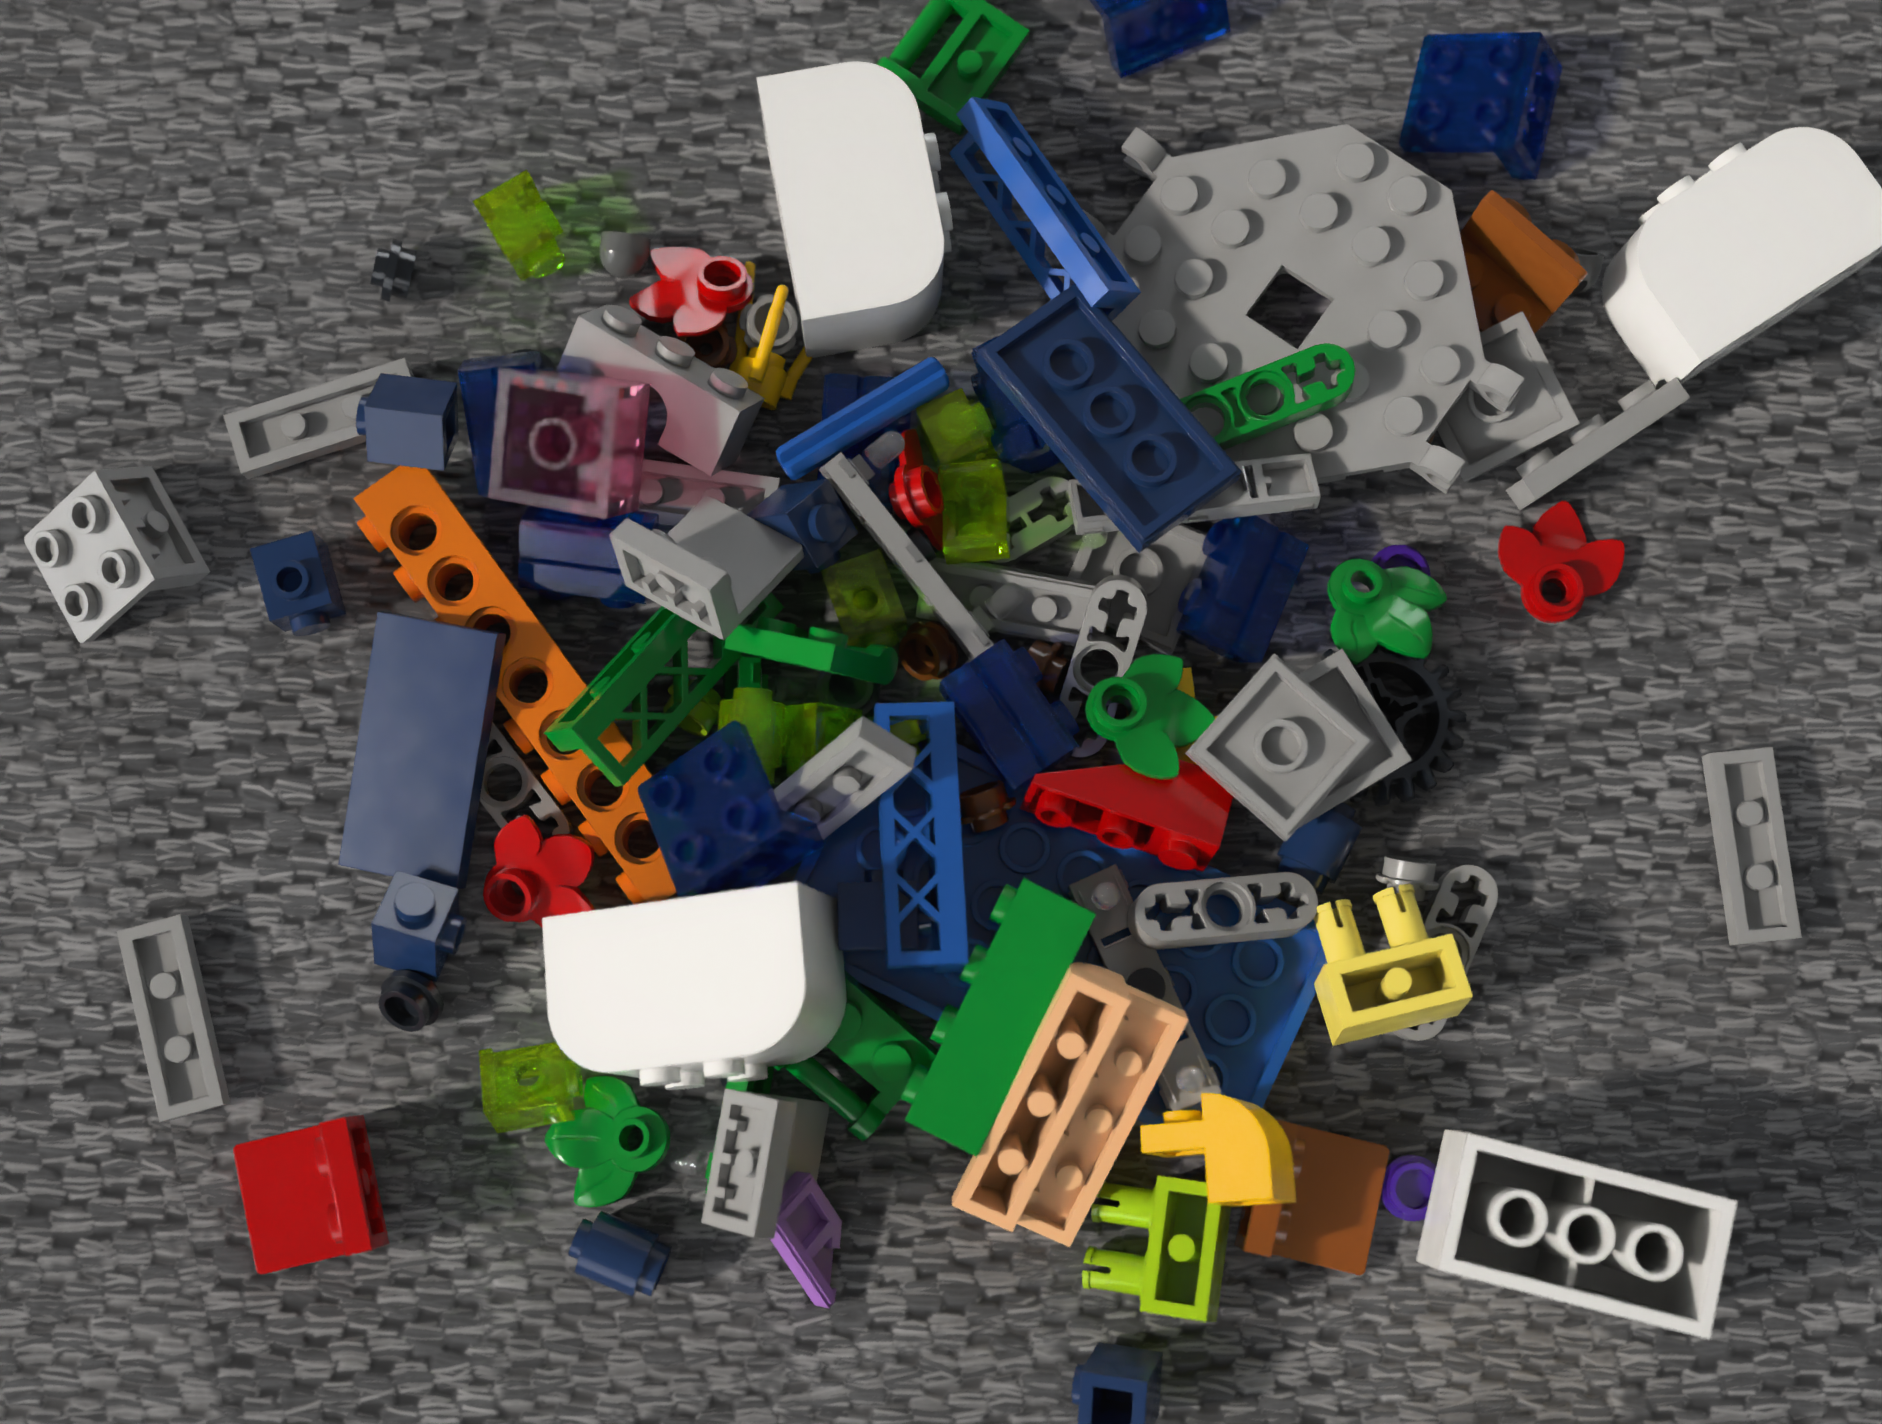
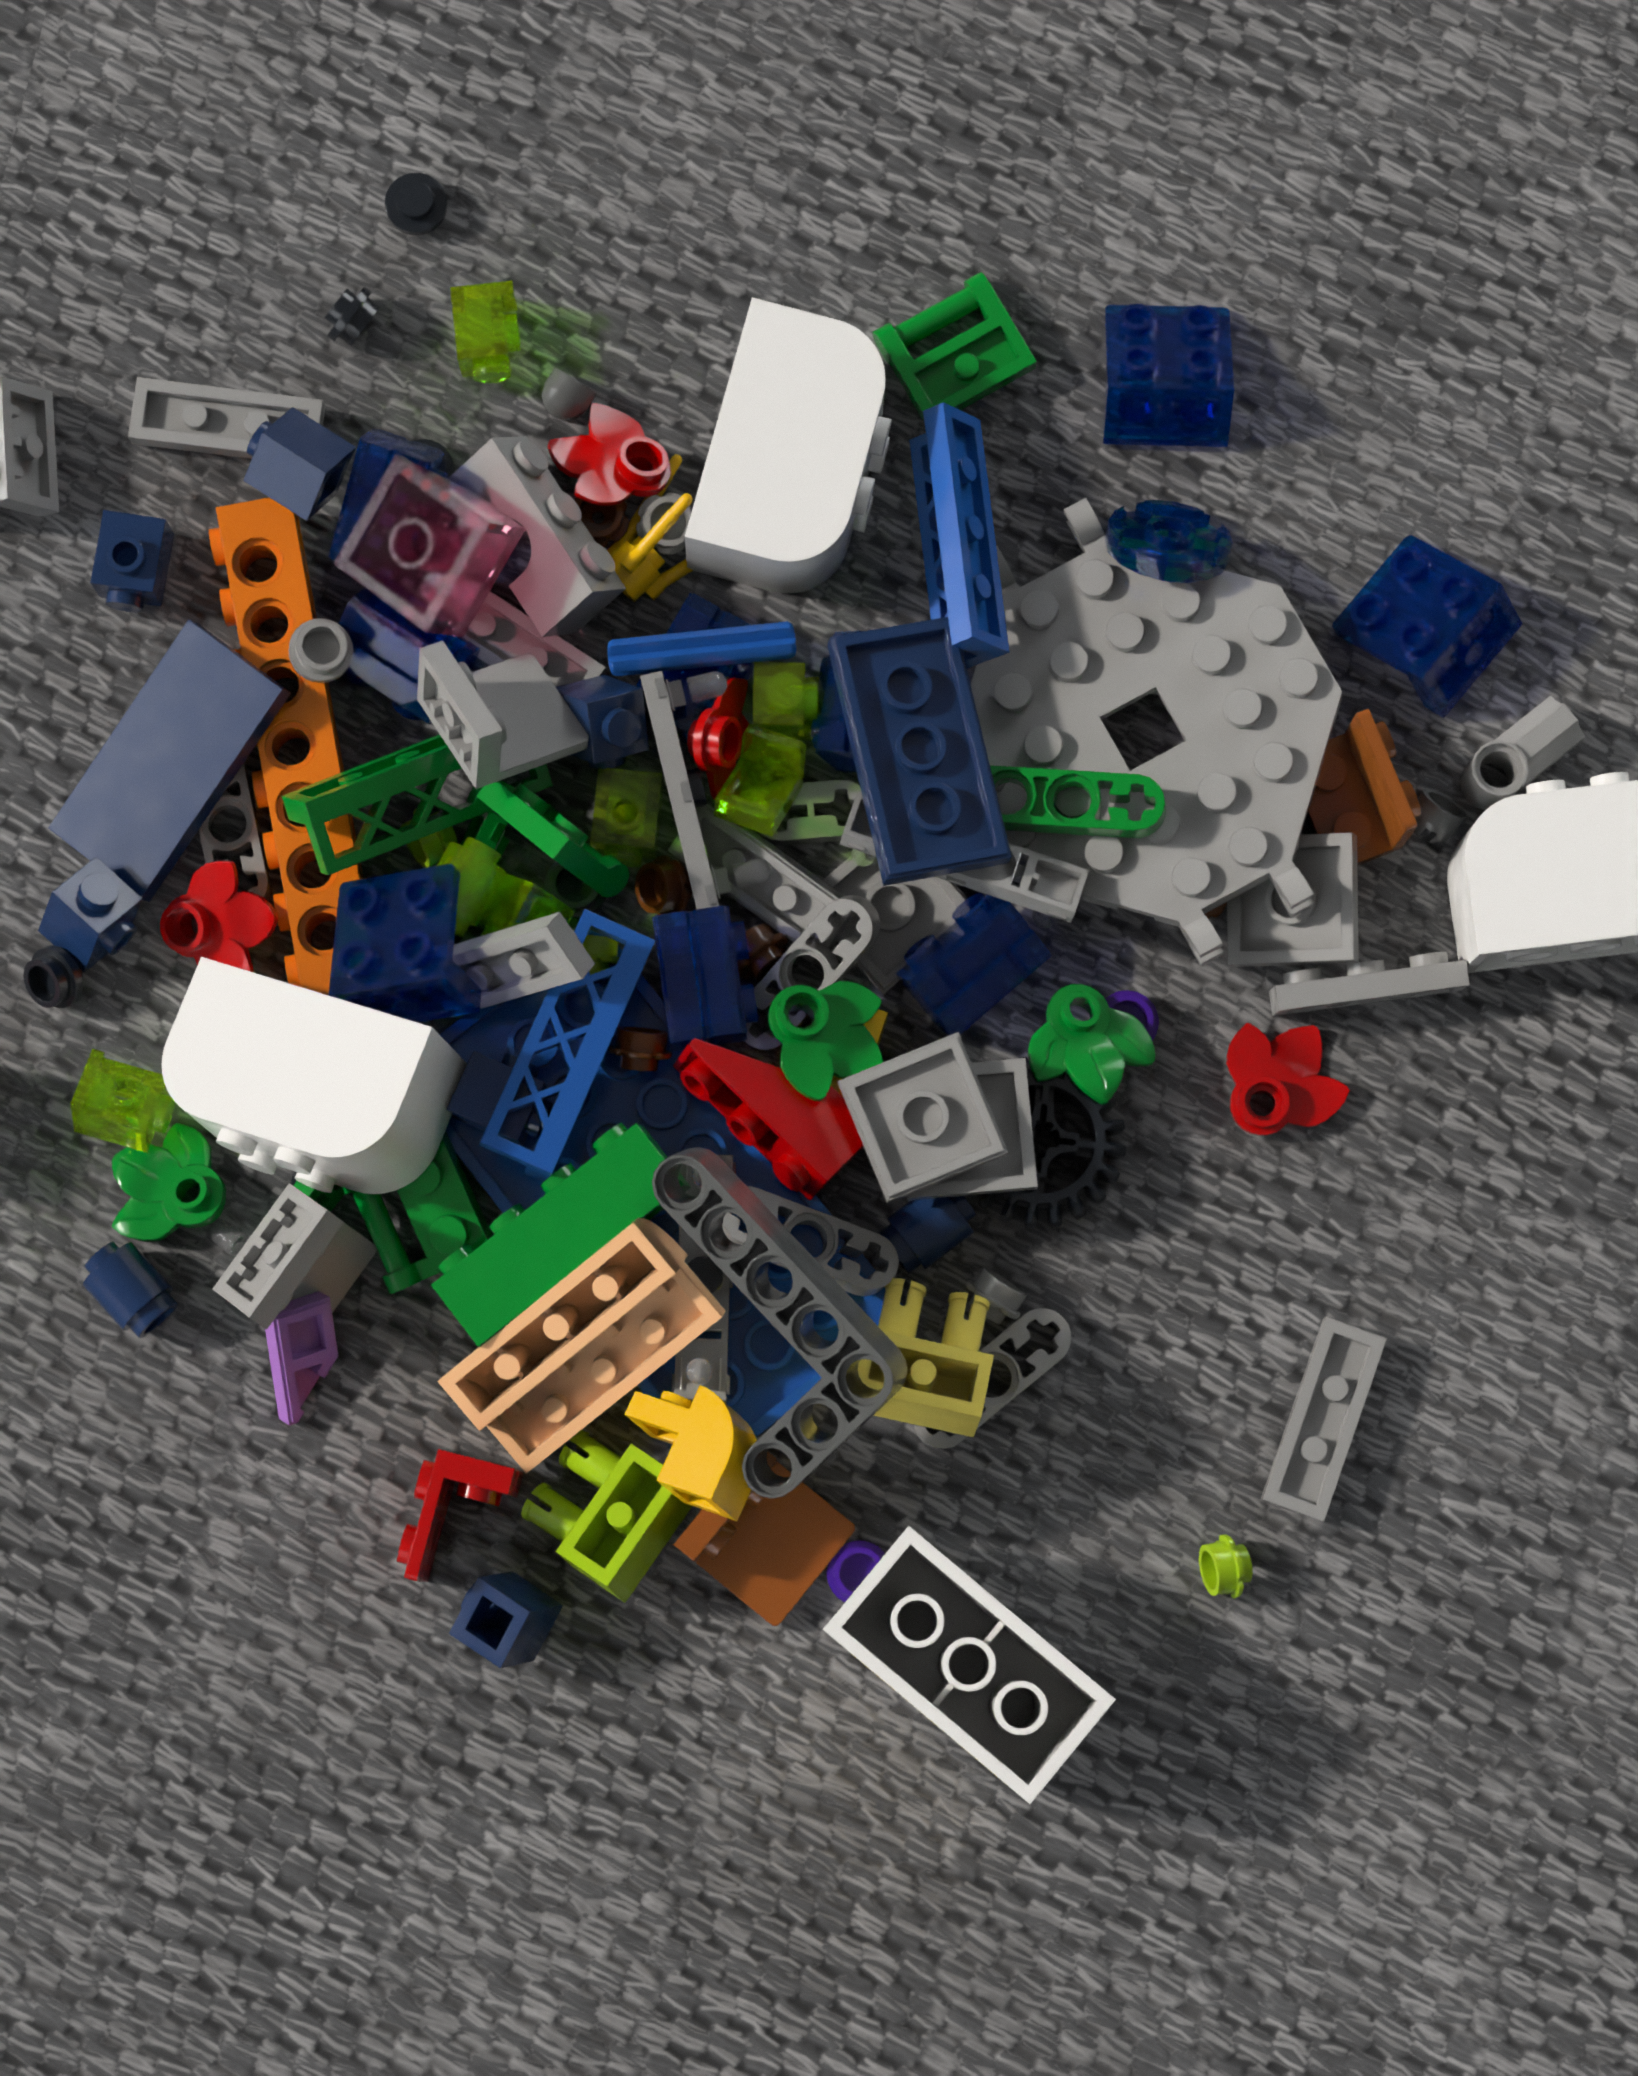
camera: 30 degrees right, 0 degrees up
(404, 146) = (416, 204): none -> black plate
(514, 582) = (320, 650): none -> light grey plate
(1037, 1280) = (435, 1483): none -> red bracket
(1227, 132) = (1168, 542): none -> clear blue tile
(1259, 987) = (789, 1313): none -> dark grey beam
(1622, 179) = (1522, 752): none -> light grey piece
(1732, 1021) = (1225, 1567): none -> lime plate

